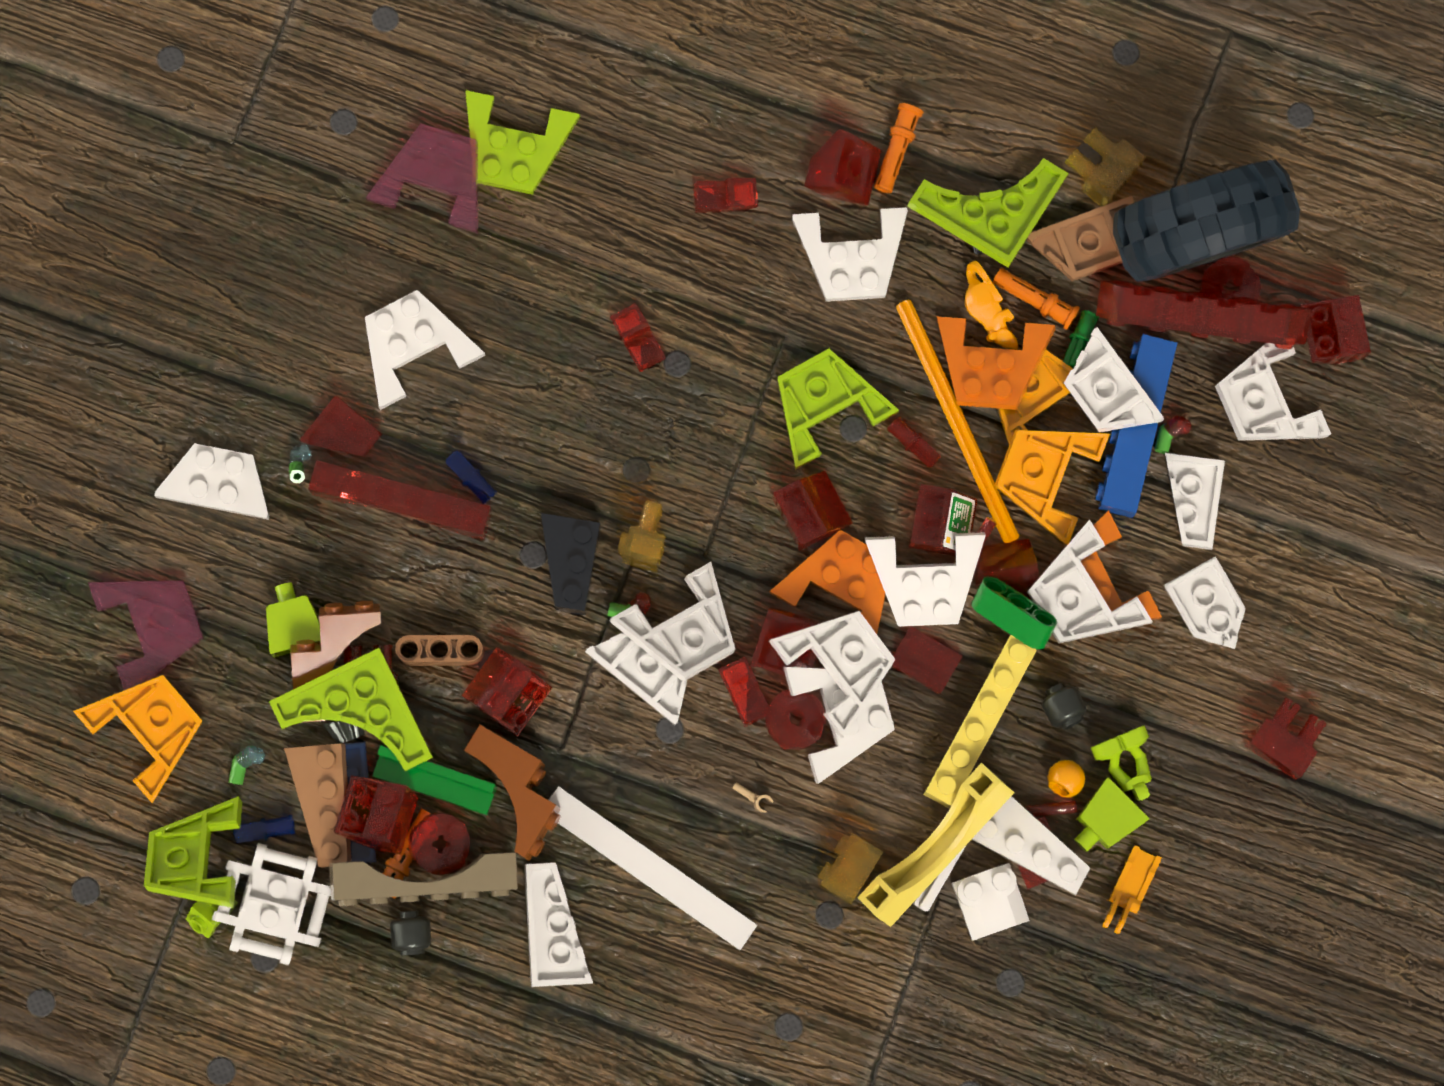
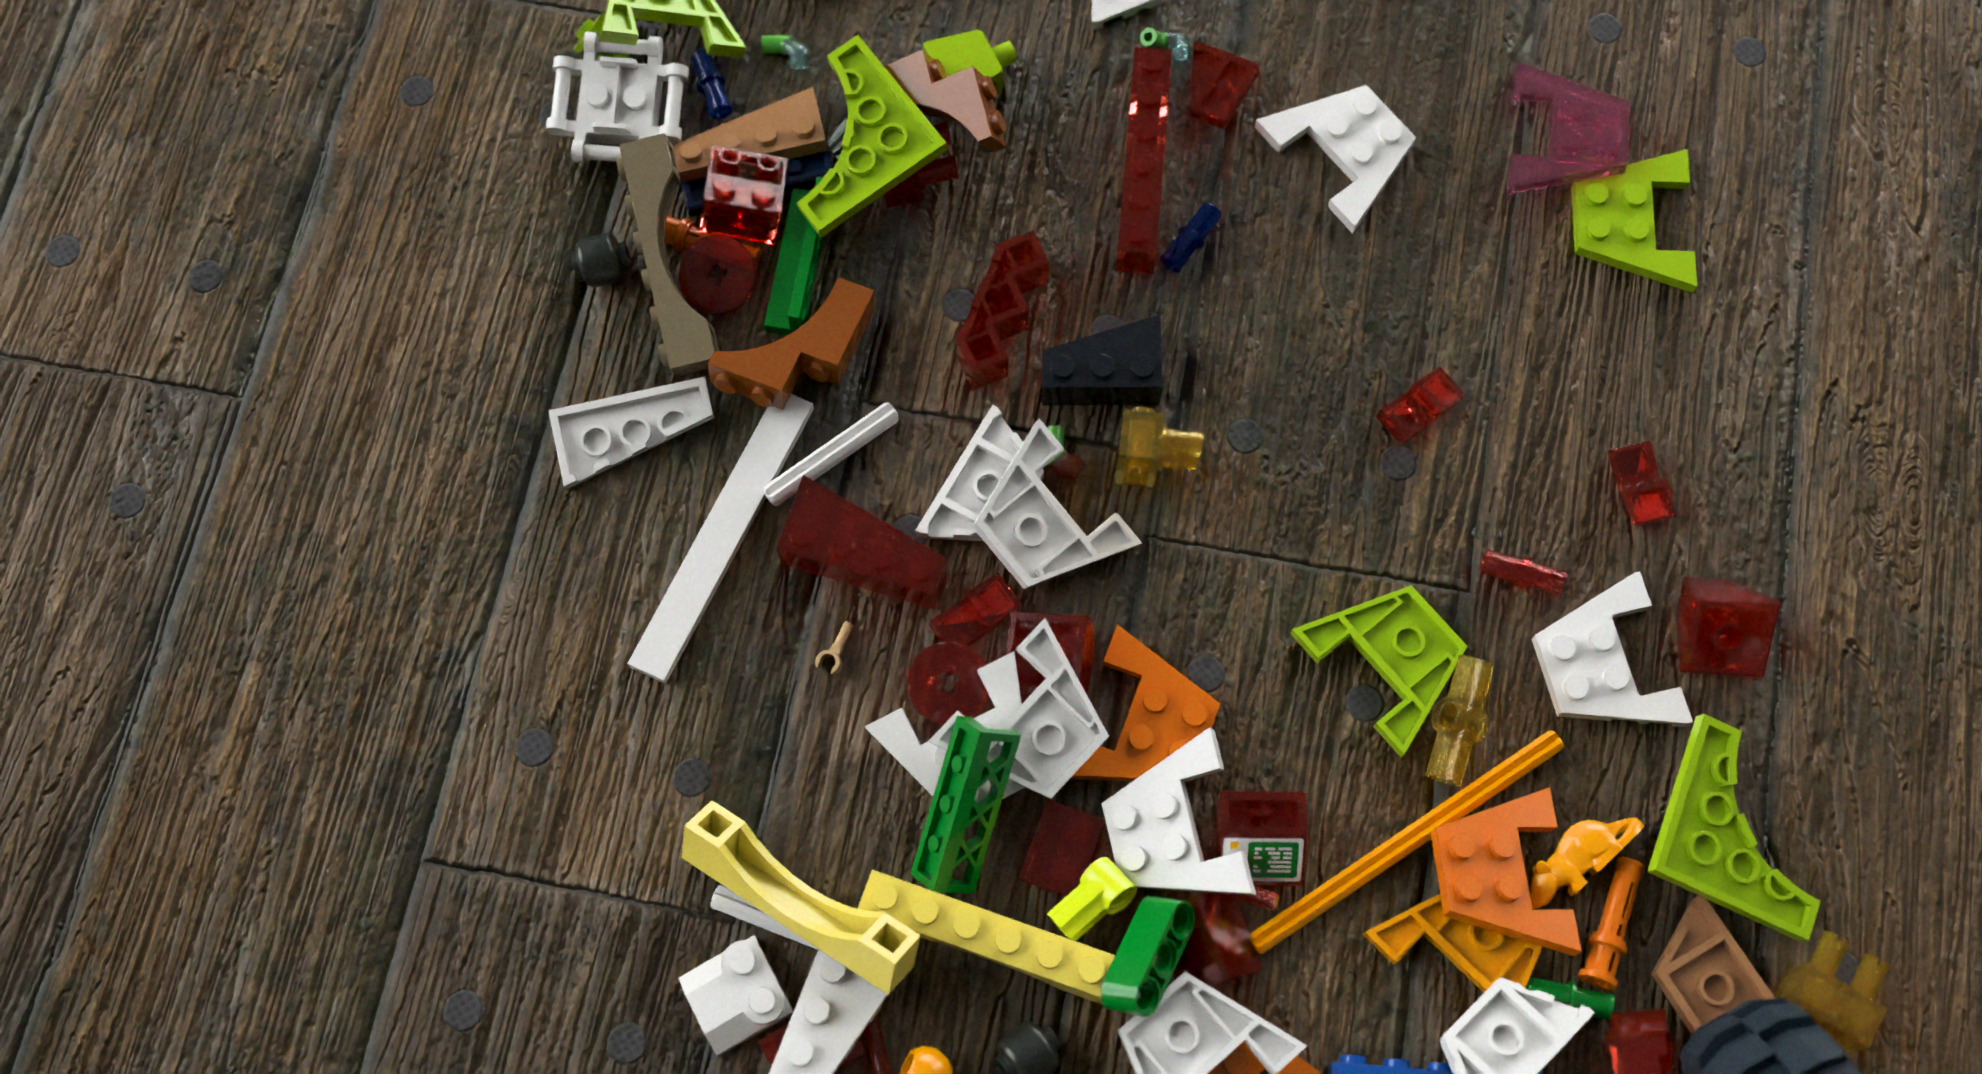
camera: 85 degrees right, 10 degrees down
(427, 642) = (958, 220): medium nougat beam -> none
(507, 691) = (922, 322): clear red slope -> none
(510, 633) = (1000, 308): none -> clear red brick
(601, 778) = (831, 453): none -> white axle
(677, 775) = (854, 547): none -> clear red wedge
(778, 295) = (1523, 572): none -> clear red pin
(811, 509) = (1239, 657): clear red slope -> none
(850, 868) = (755, 789): clear yellow brick -> none
(882, 366) = (1460, 720): none -> clear yellow piece
(892, 725) = (955, 806): none -> green fence
(901, 135) = (1792, 698): orange pin -> none
(913, 442) = (1364, 784): clear red axle -> none
(963, 638) = (1100, 892): none -> neon yellow piece
(1035, 470) = (1365, 958): light orange wing -> none

